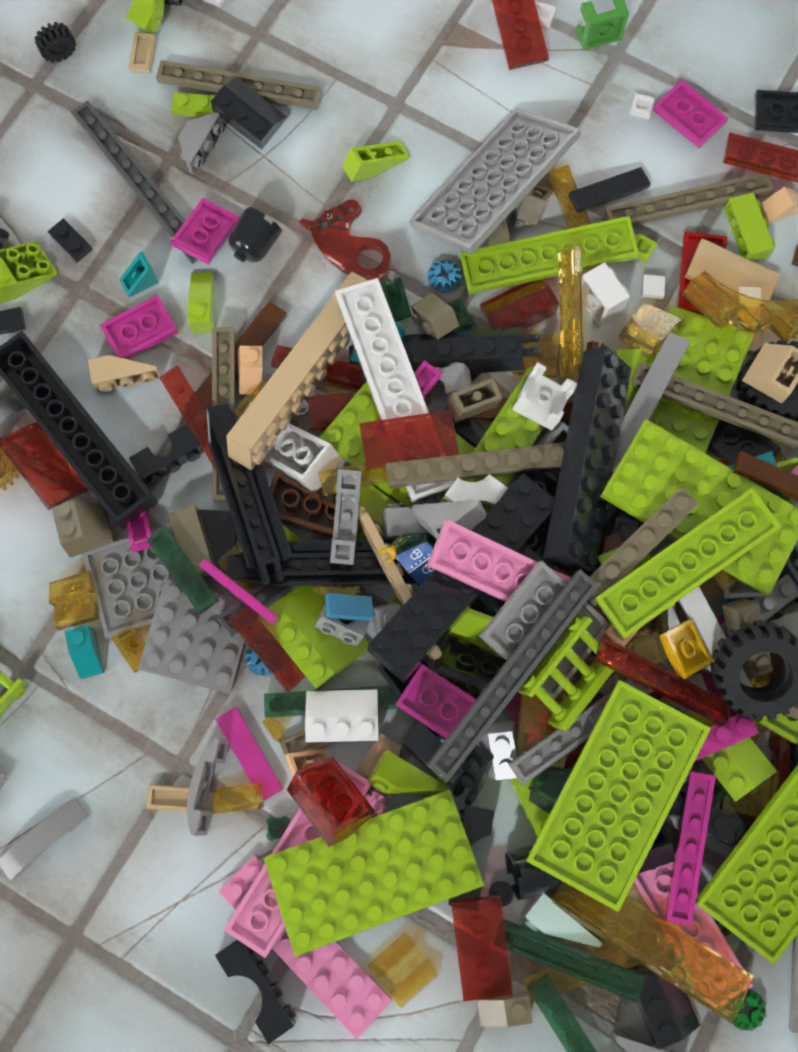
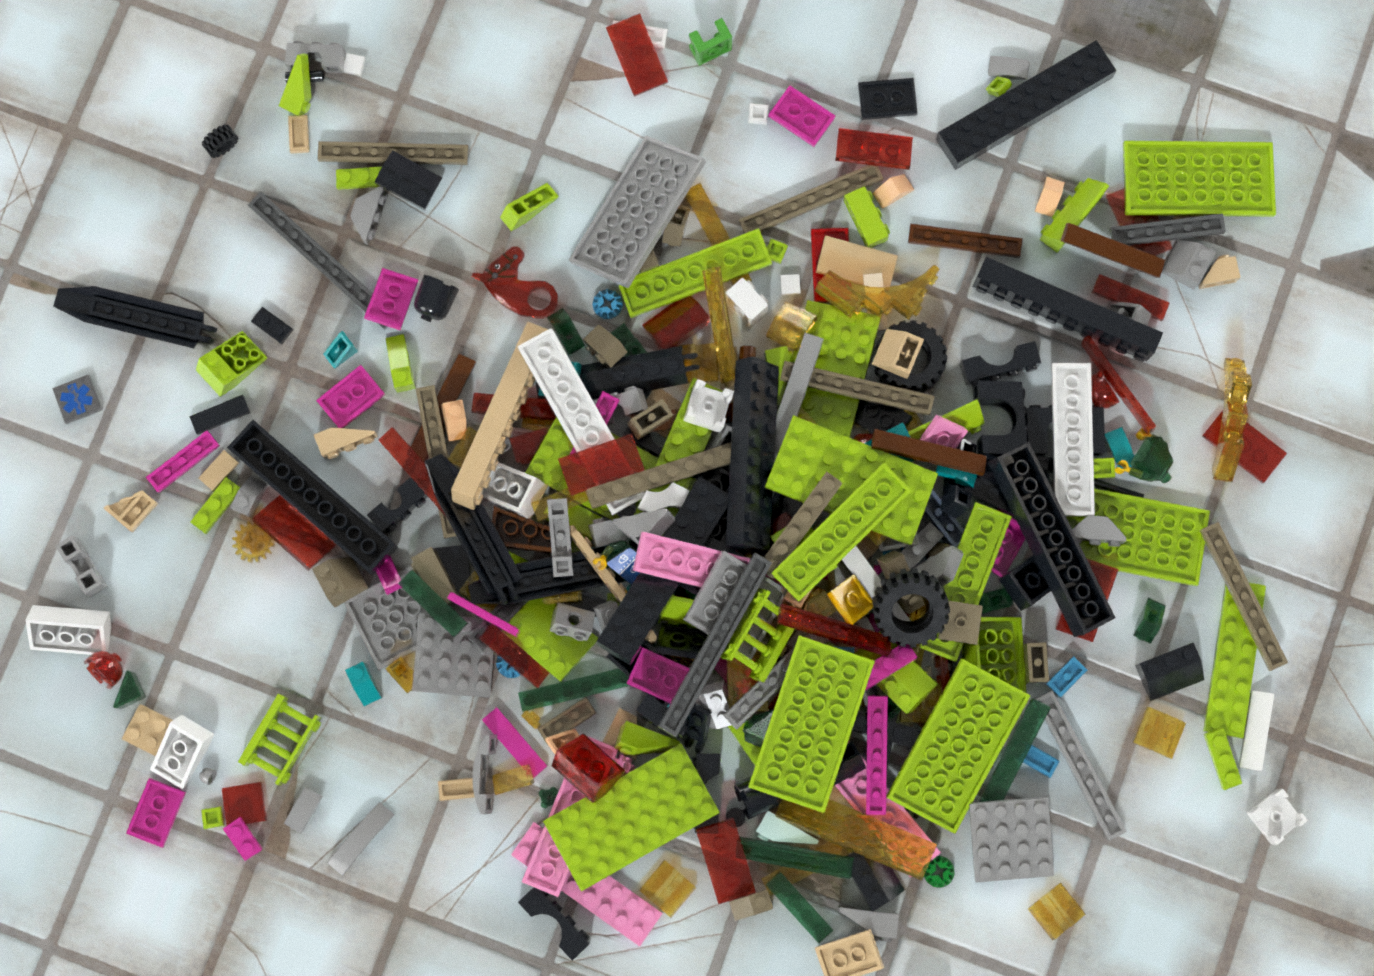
camera: 10 degrees left, 5 degrees up
(74, 600) = (345, 643): clear yellow slope -> none
(341, 715) = (585, 699): white slope -> none
(349, 607) = (575, 610): dark azure tile -> none
(609, 190) = (739, 201): black tile -> none

